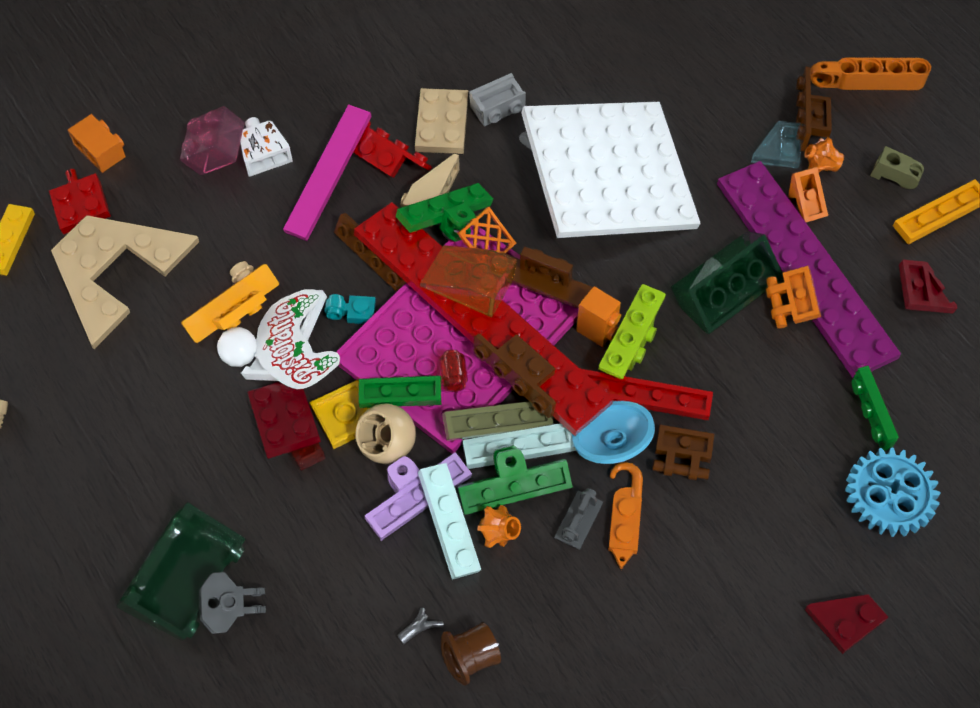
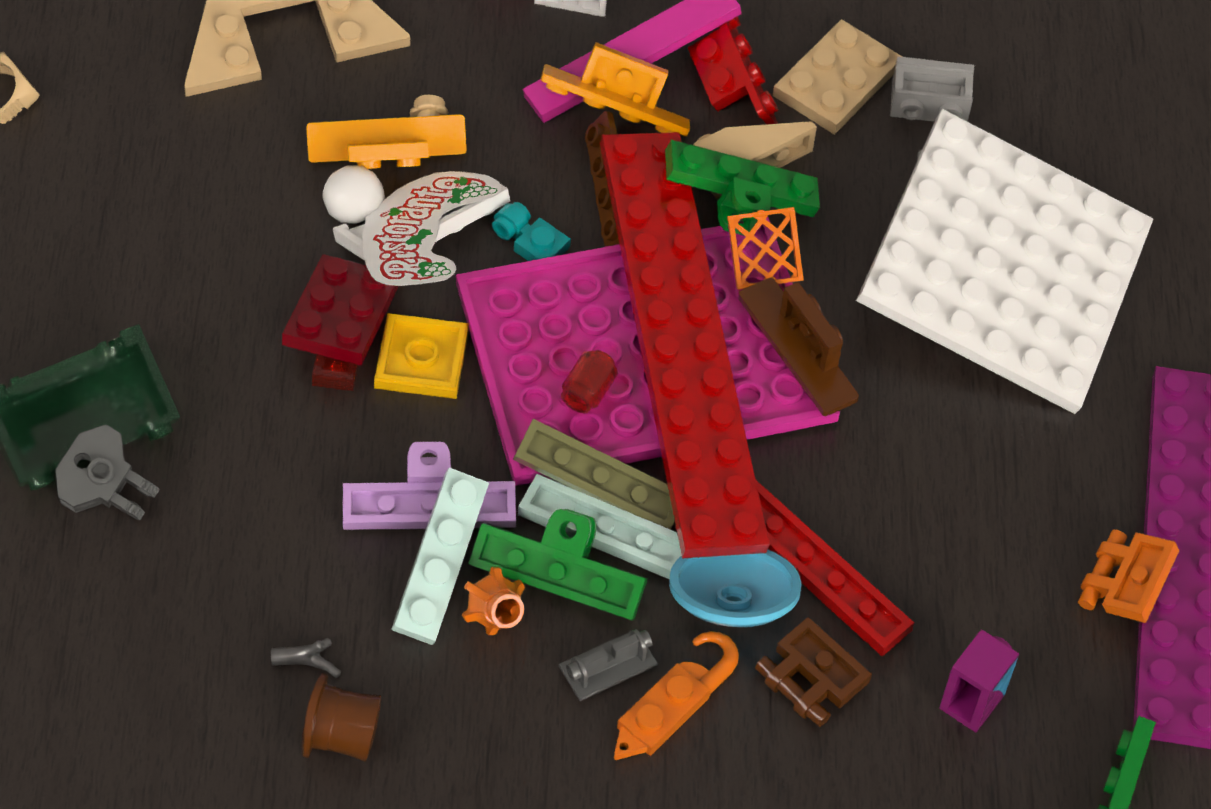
camera: 30 degrees right, 5 degrees down
(339, 194) = (621, 84): none -> light orange bracket
(385, 433) = (444, 401): tan wheel -> none
(400, 391) = (502, 365): green plate -> none
(471, 277) = (701, 281): clear orange slope -> none
(521, 368) = (676, 428): reddish brown bracket -> none
(598, 316) = (833, 433): orange brick -> none
(633, 333) = (864, 484): lime bracket -> none
(727, 281) = (1054, 501): clear green slope -> none
(771, 401) = (979, 680): none -> magenta brick

